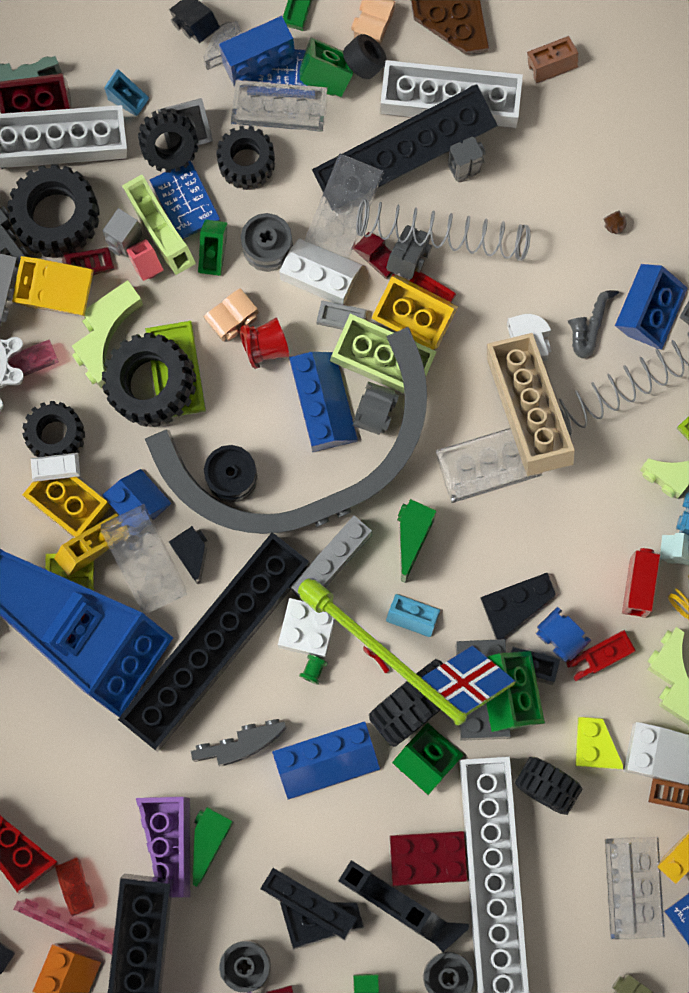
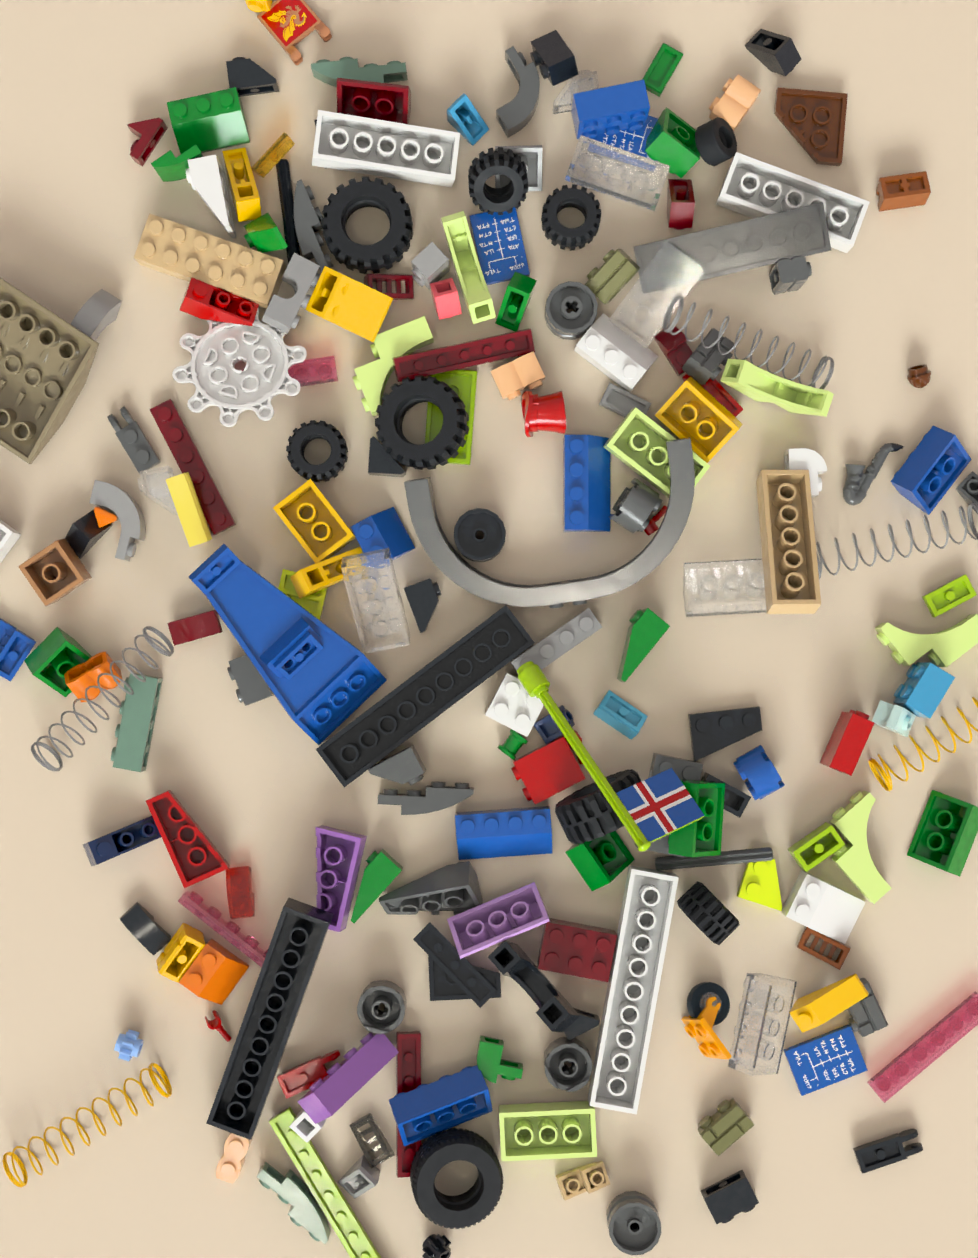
camera: 10 degrees right, 10 degrees up
(27, 962) = (180, 952): none -> yellow brick
(38, 670) = (249, 681): none -> dark grey brick
(55, 467) = (311, 488): white tile -> none
(120, 428) = (381, 461): none -> black slope
(174, 307) = (464, 354): none -> dark red plate
(175, 71) = (521, 109): none -> dark grey arch
(206, 717) = (401, 767): none -> dark grey slope
(279, 833) = (446, 889): none -> dark grey wedge
(298, 200) = (612, 275): none -> olive brick
(340, 845) = (498, 920): none -> lavender slope
(346, 121) = (680, 204): none -> dark red slope
(346, 643) = (548, 728): none -> dark blue bracket
(354, 686) = (547, 770): none -> red brick
(395, 423) = (652, 527): none -> red hand
(473, 266) = (771, 388): none -> yellowish green arch
(541, 733) = (725, 858): none -> dark grey axle
(575, 883) = (707, 1007): none -> plate
(603, 654) = (793, 799): red hinge -> none
(639, 694) = (816, 846): none -> lime brick

